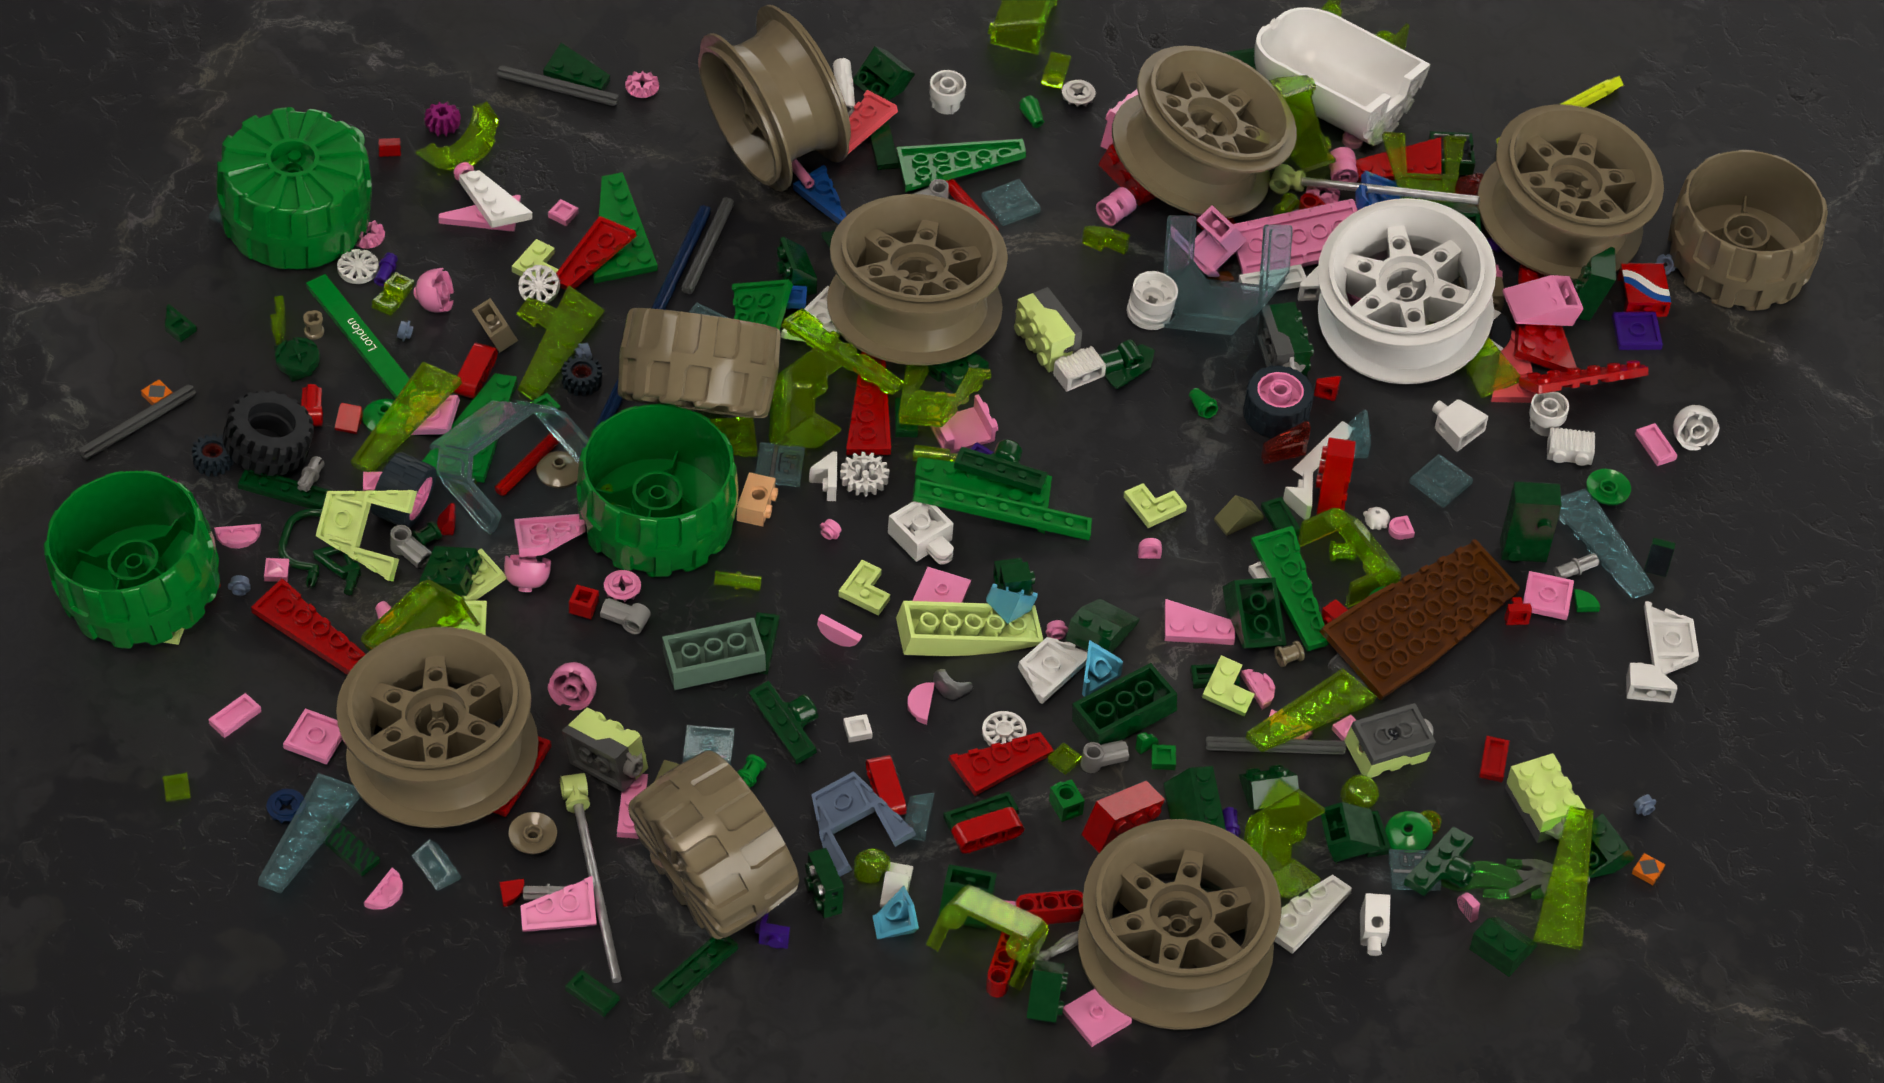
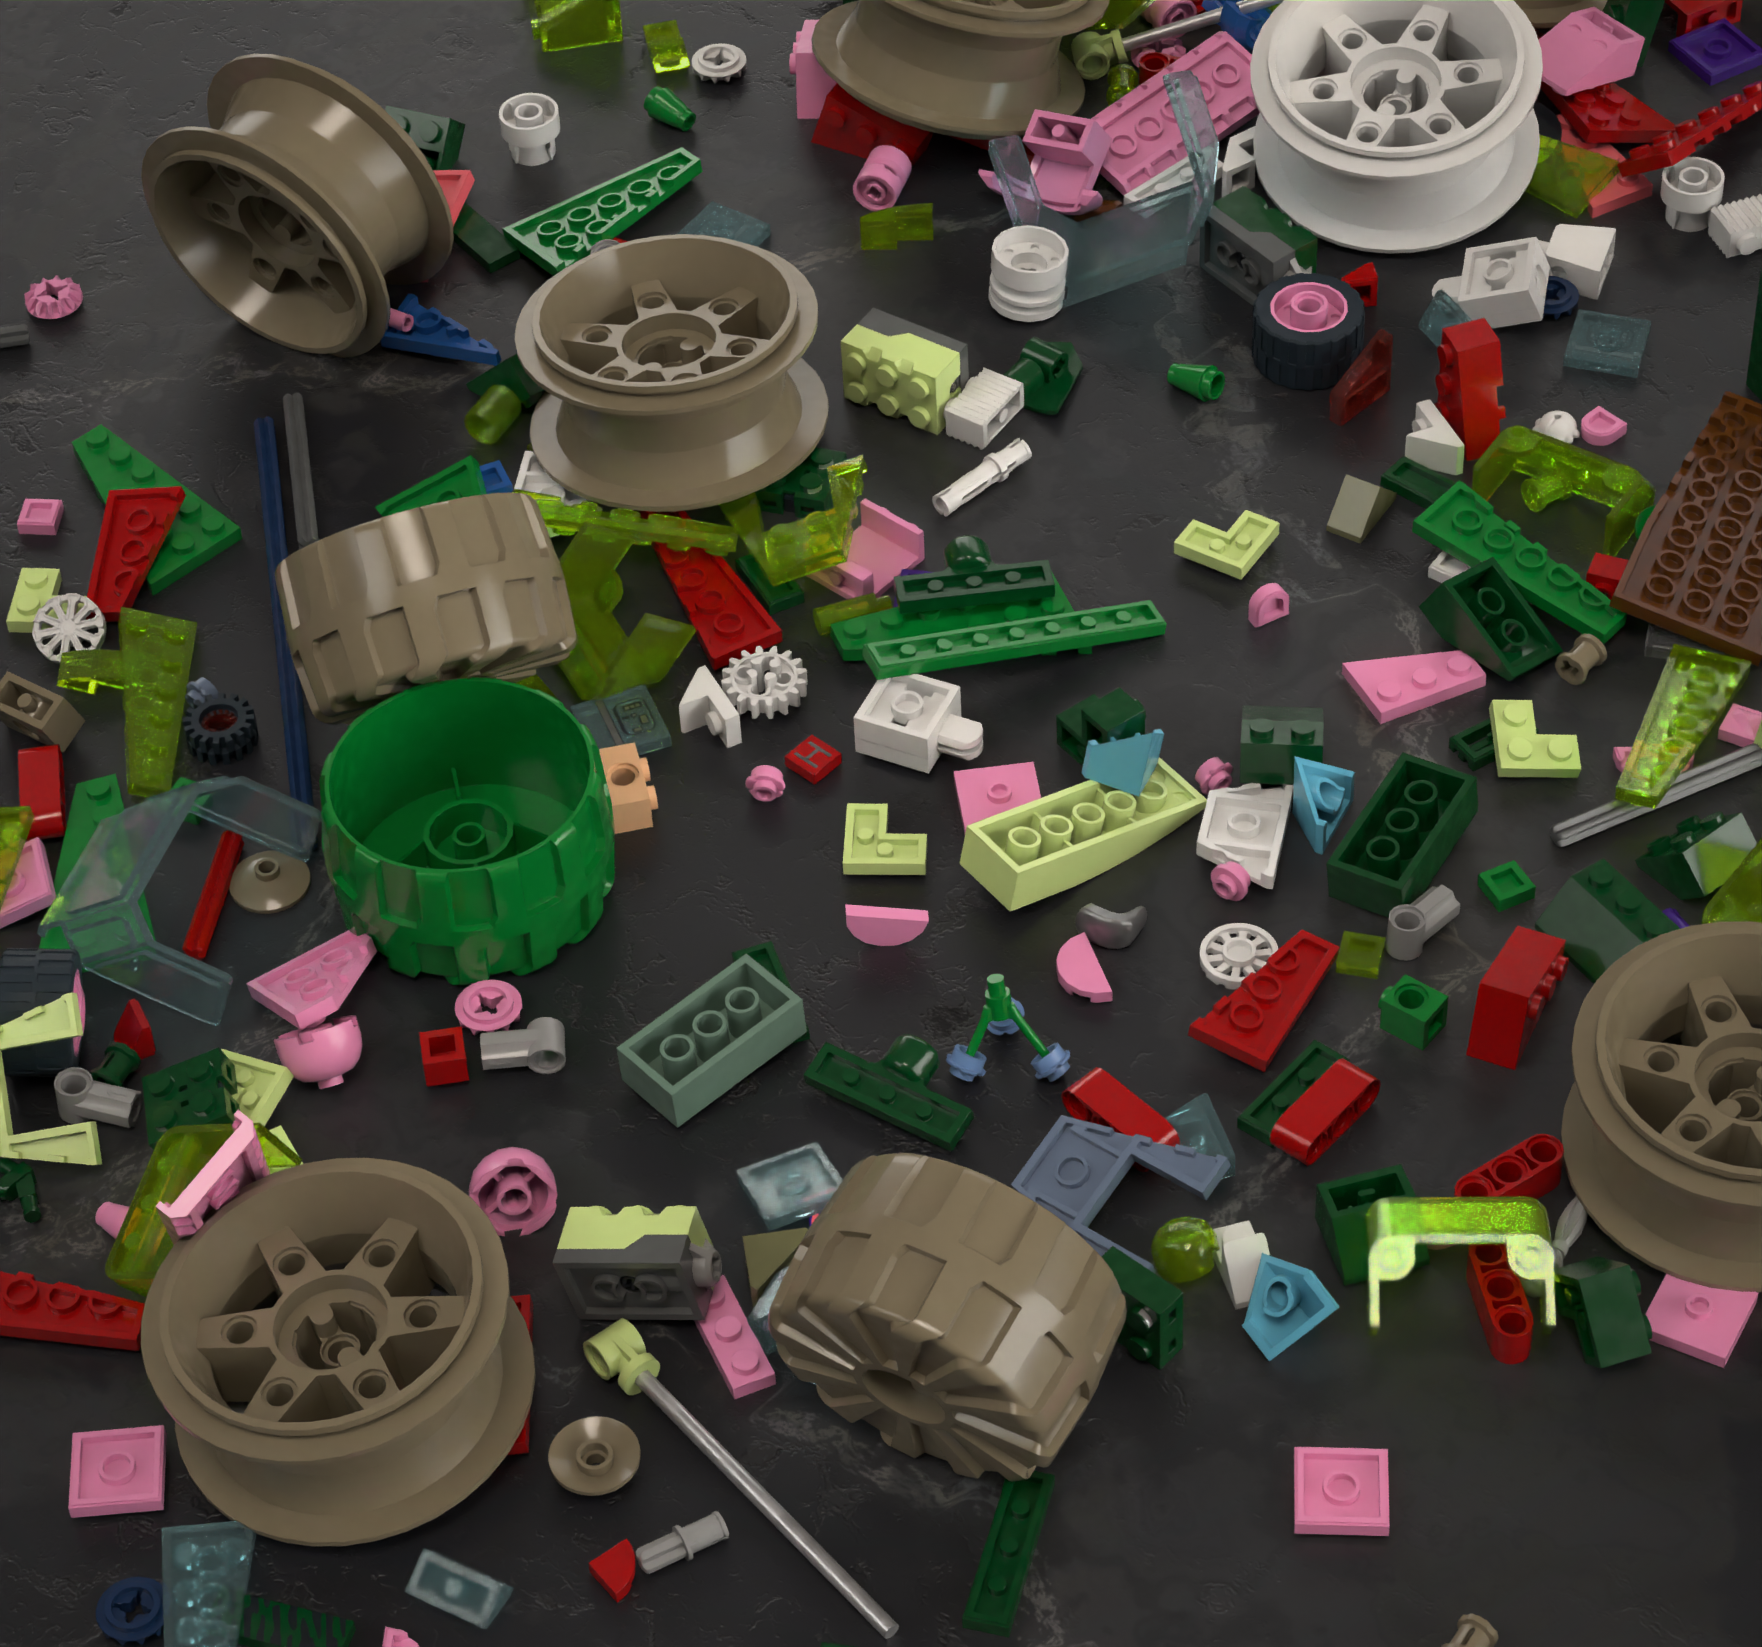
camera: 20 degrees left, 5 degrees down
(420, 618) = (230, 1169): none -> bright pink ladder
(562, 909) = (727, 1556): bright pink wing -> none
(737, 580) = (670, 918): clear neon green pin -> none
(771, 934) = (1104, 1432): dark purple bracket -> none
(796, 265) = (456, 435): dark green slope -> none
(820, 257) = (492, 414): none -> clear neon green piece
(857, 728) = (1009, 1053): white tile -> none
(863, 527) = (813, 759): none -> red tile
(863, 706) = (1001, 1016): none -> plant
(865, 1016) = (1341, 1491): none -> bright pink plate
(1024, 690) = (1230, 881): none -> bright pink plate
(1047, 409) = (993, 469): none -> white pin
(1144, 742) = (1465, 876): green tile -> none
(1260, 685) = (1571, 720): bright pink tile -> none
(1311, 460) = (1410, 374): white sticker -> none
(1400, 421) = (1501, 283): none -> white brick
(1433, 433) = (1565, 294): none -> dark blue gear

